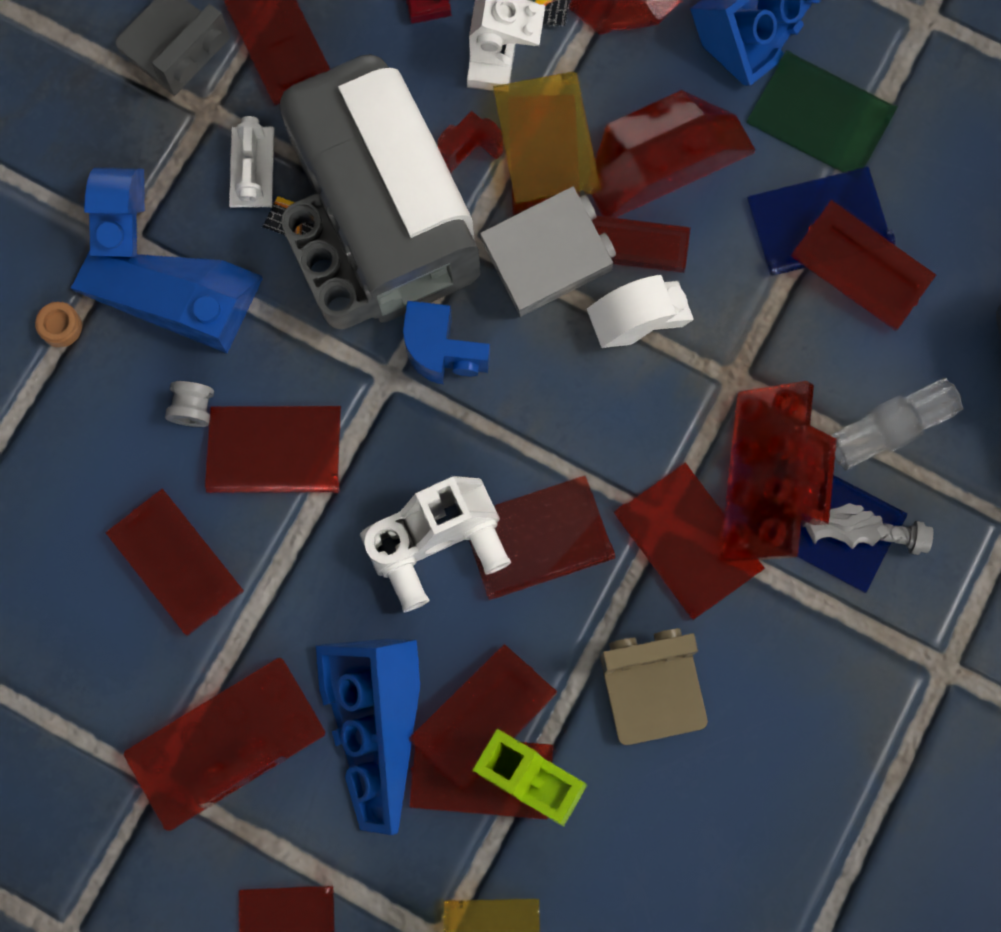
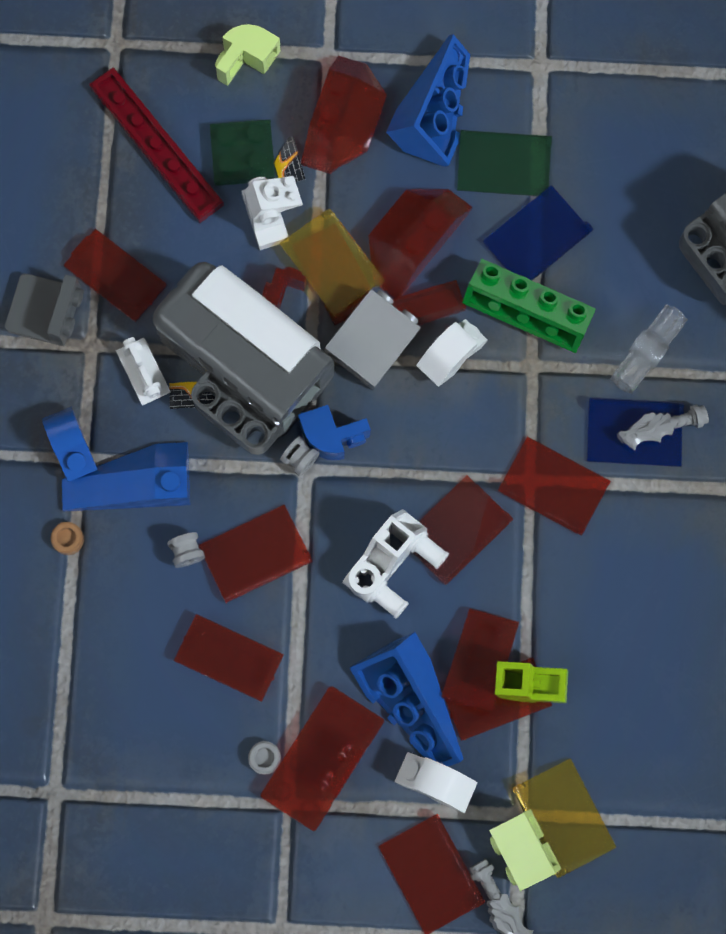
camera: 30 degrees left, 0 degrees up
(154, 707) = (264, 758): none -> light grey tile
(349, 846) = (436, 781): none -> white brick
(386, 354) = (299, 456): none -> light grey wheel
(654, 687) = (578, 590): dark tan bracket -> none
(765, 299) = (528, 305): none -> green brick
(776, 473) = (589, 417): clear red bracket -> none
(863, 265) = (579, 253): clear red piece -> none

